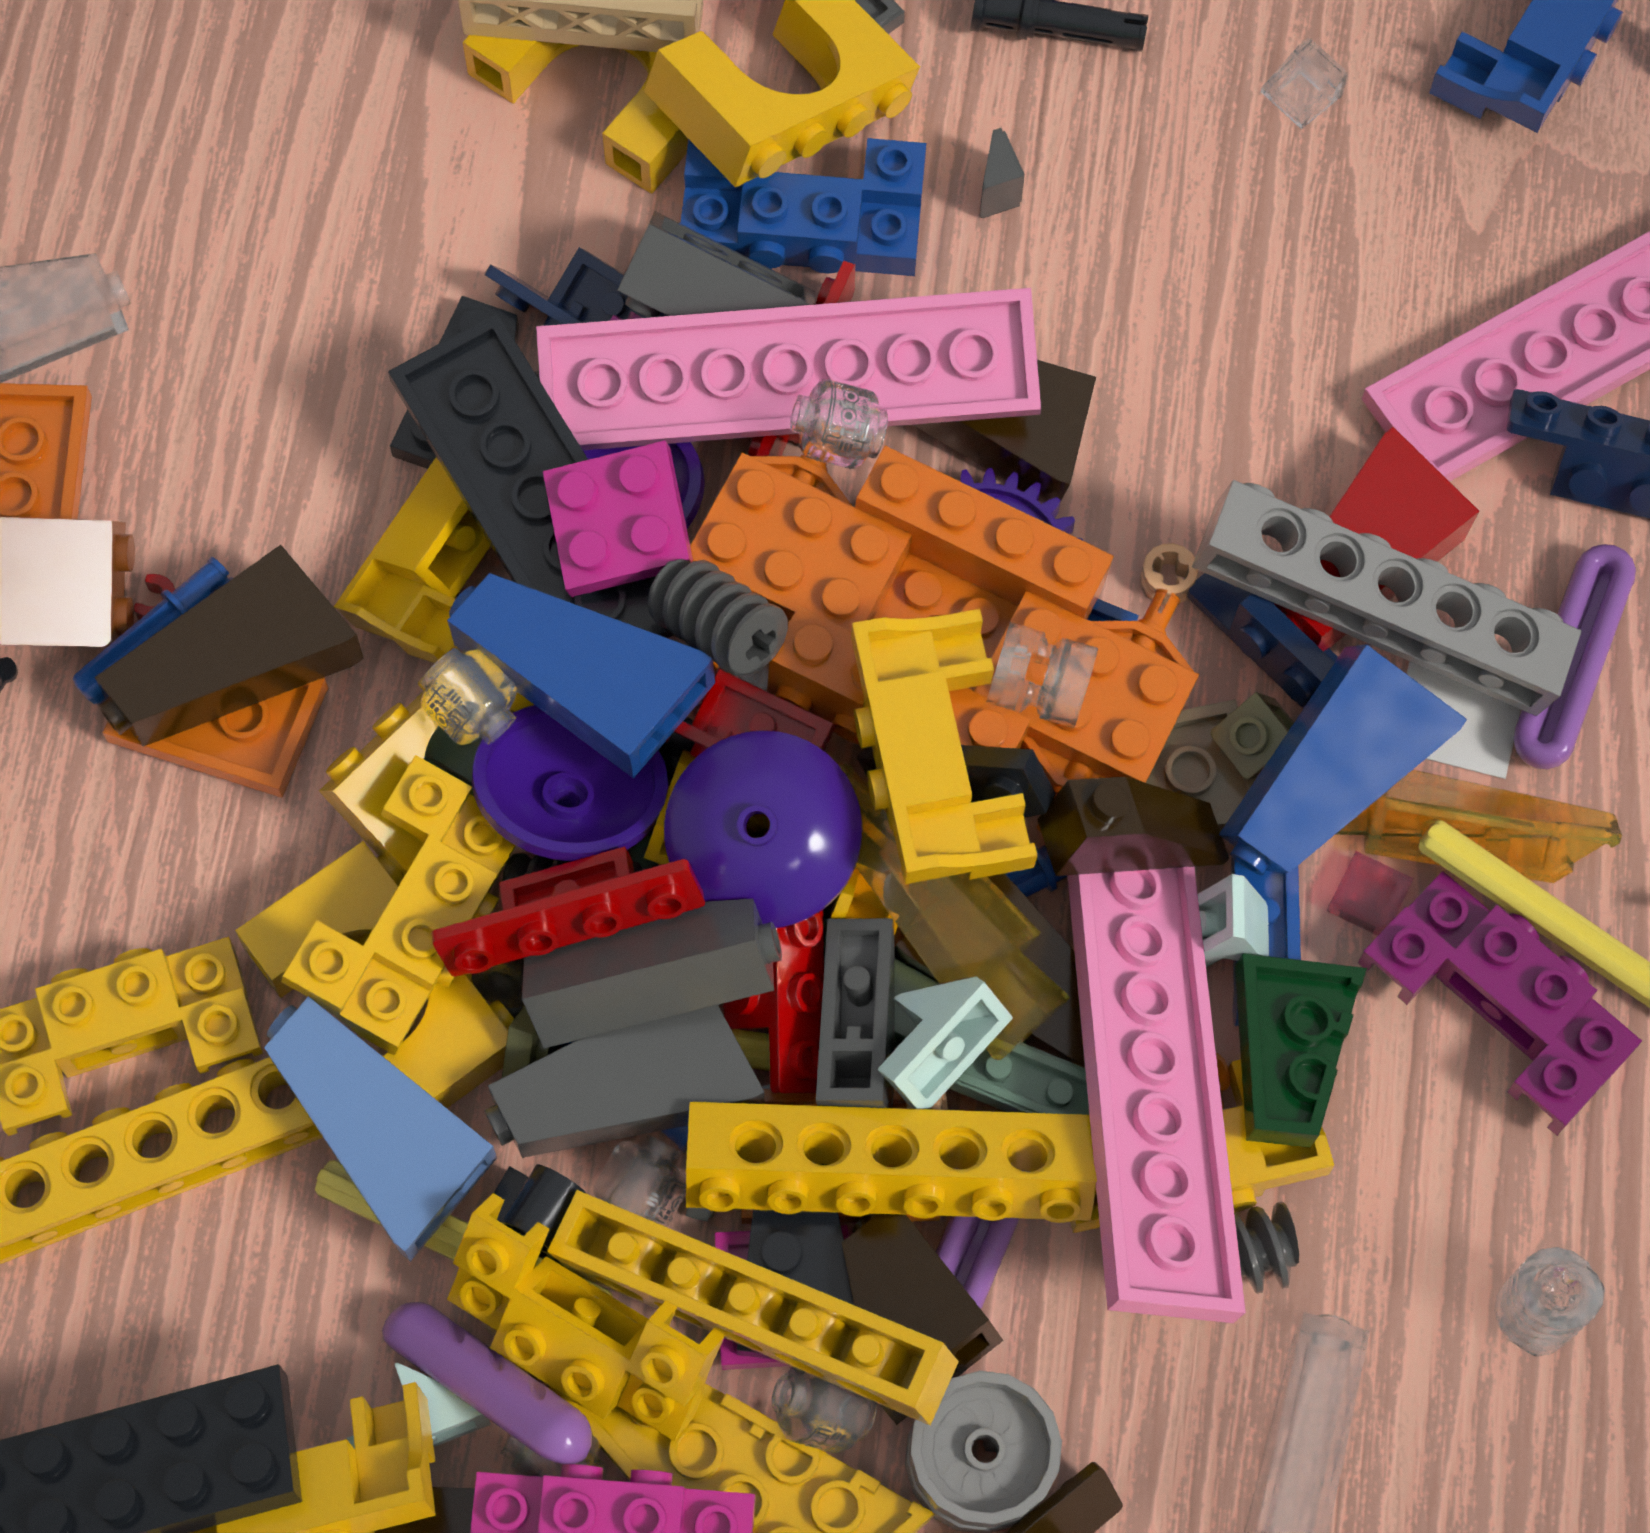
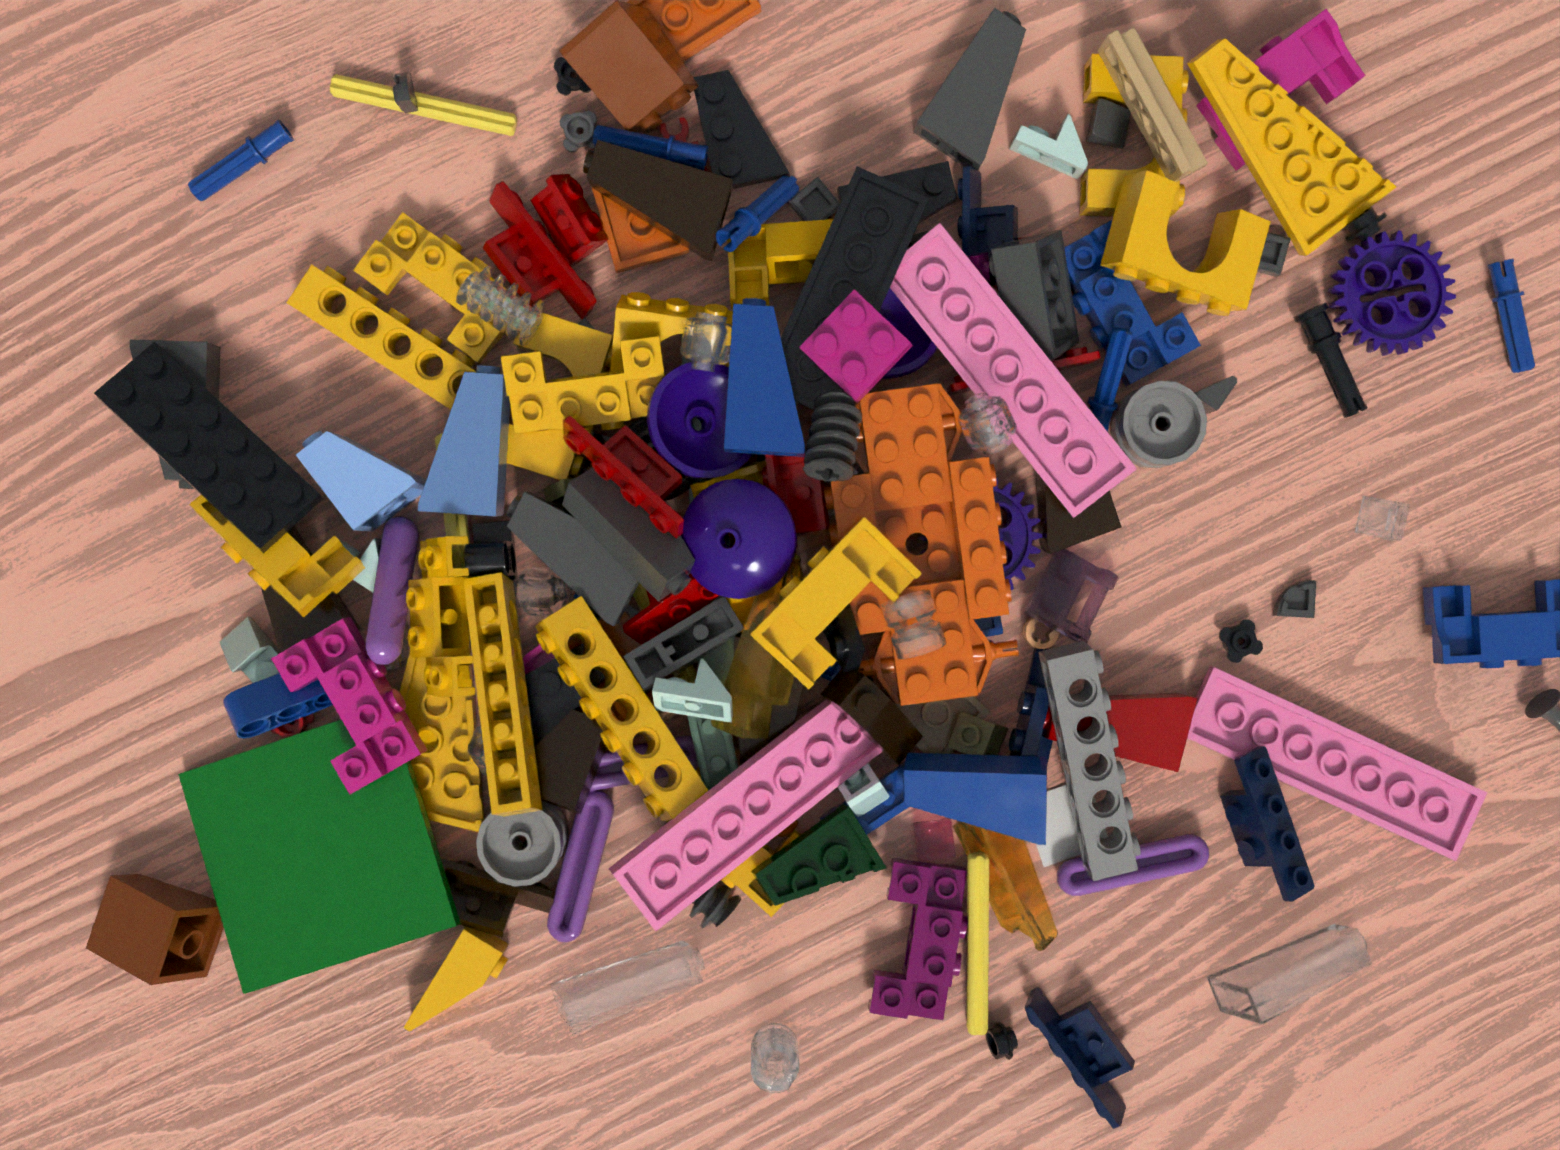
camera: 55 degrees right, 20 degrees up
(46, 705) = (572, 123): none -> flat silver plate
(162, 802) = (569, 217): none -> red bracket
(176, 885) = (531, 259): none -> red bracket
(210, 944) = (501, 305): none -> clear piece
(231, 523) = (733, 133): none -> black wing
(303, 1311) = (358, 480): none -> light blue slope
(348, 563) = (749, 220): none -> blue axle
(385, 488) = (814, 202): none -> dark grey tile
(407, 217) = (970, 99): none -> dark grey slope
(554, 160) = (1061, 153): none -> light aqua slope
(562, 88) = (1108, 124): none -> dark grey slope
(875, 253) = (1103, 401): none -> blue axle
(994, 239) = (1176, 411): none -> light grey wheel
(1085, 1407) = (580, 867): none -> medium lavender piece
(1129, 513) = (1059, 589): none -> plate
(1346, 245) = (1297, 600): none -> dark grey tile
(1349, 355) = (1230, 638): none -> black plate

